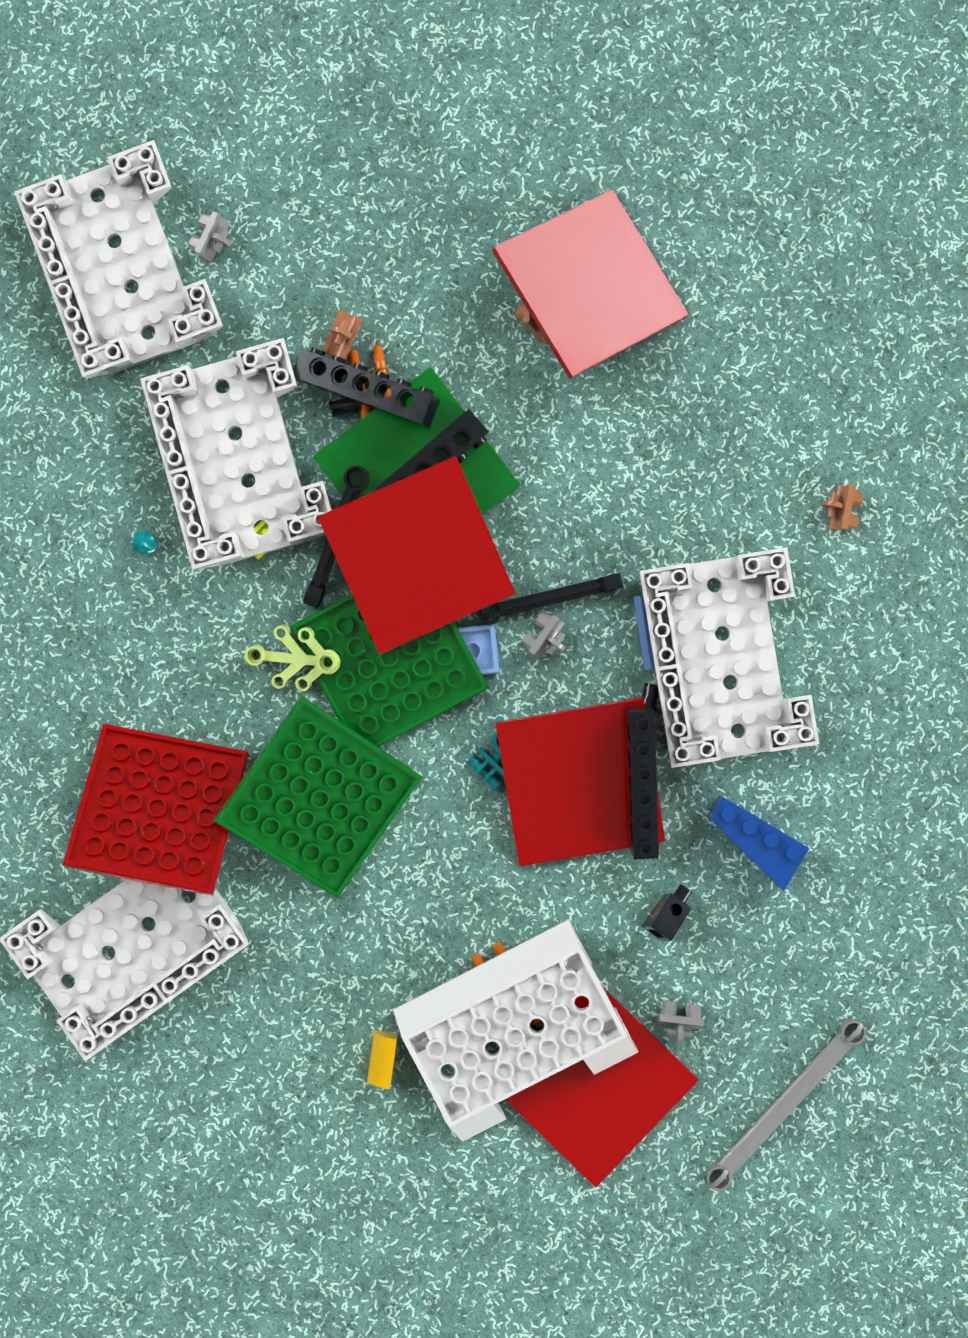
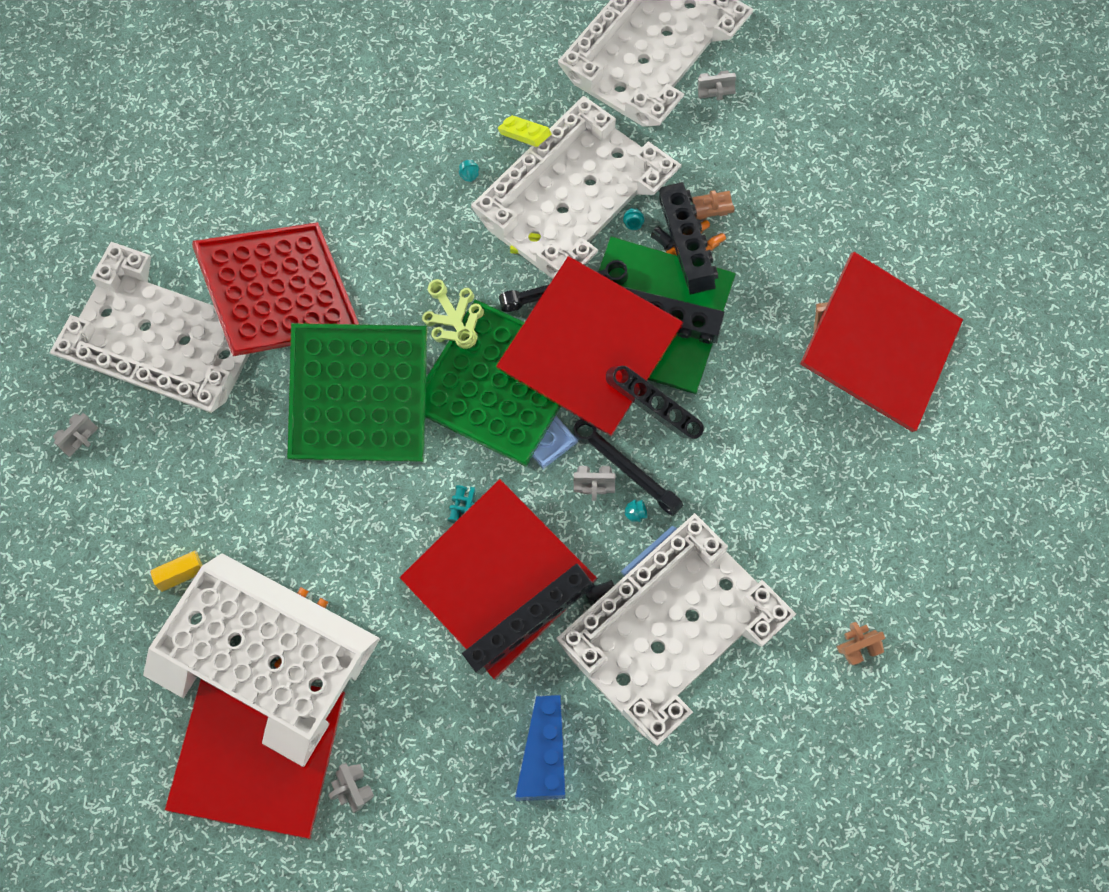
camera: 60 degrees right, 20 degrees down
(140, 462) = (524, 130): none -> neon yellow plate
(186, 1079) = (75, 435): none -> light grey hips
(304, 420) = (633, 219): none -> teal plate
(505, 539) = (644, 401): none -> black beam
(597, 617) = (636, 511): none -> teal plate
(661, 921) = (424, 717): black torso -> none

